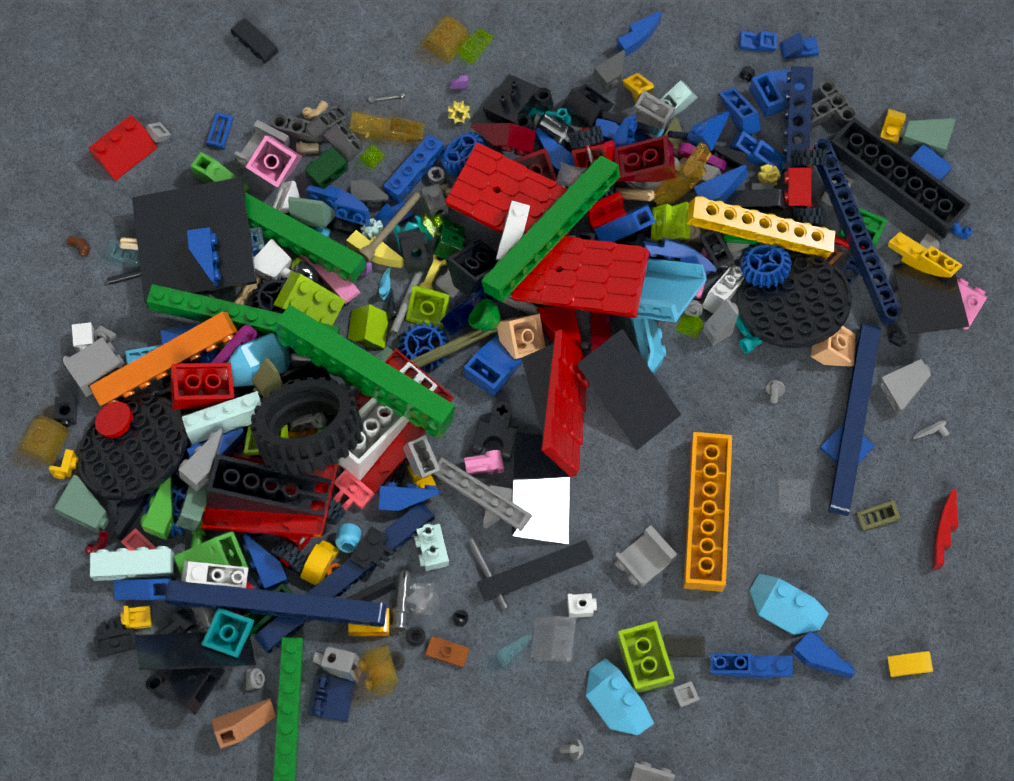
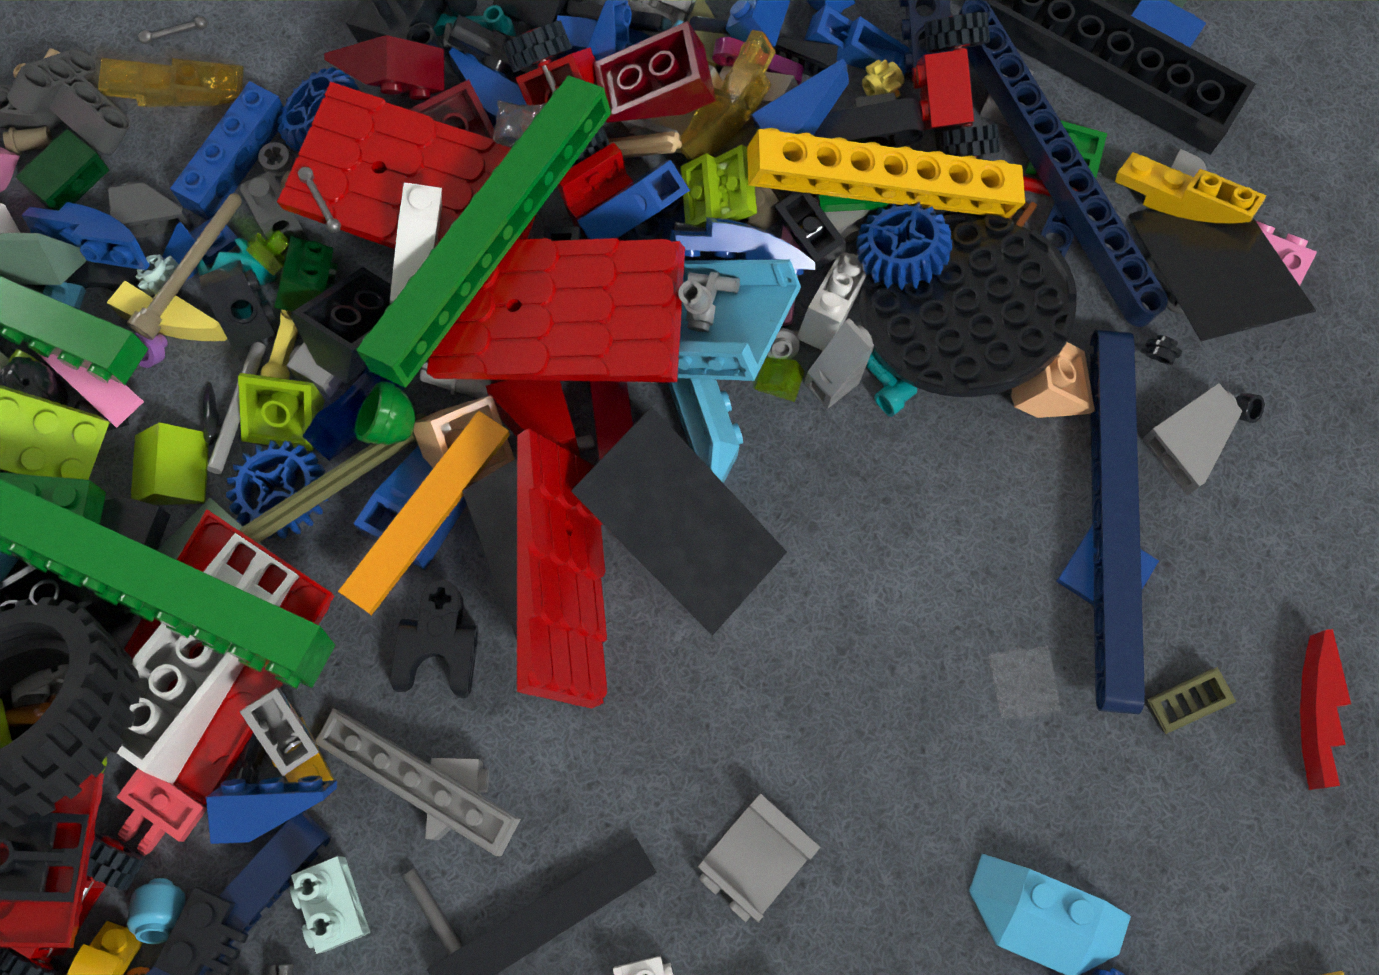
camera: 10 degrees left, 5 degrees up
(372, 157) = (153, 140): clear neon green tile -> none
(384, 286) = (195, 379): medium azure bar -> none
(460, 190) = (306, 176): none -> flat silver hinge
(462, 109) = (305, 28): light yellow gear -> none
(486, 463) = (424, 708): bright pink piece -> none
(501, 365) = (424, 513): none -> light orange tile
(541, 490) = (533, 758): piece -> none
(653, 277) = (698, 297): none -> light grey pin
(708, 512) = (868, 749): light orange brick -> none
(775, 389) = (956, 477): light grey plate -> none
(932, 429) = (1256, 513): light grey bar -> none
(938, 374) = (1251, 406): none -> black hinge
(961, 232) = (1241, 140): blue arm -> none

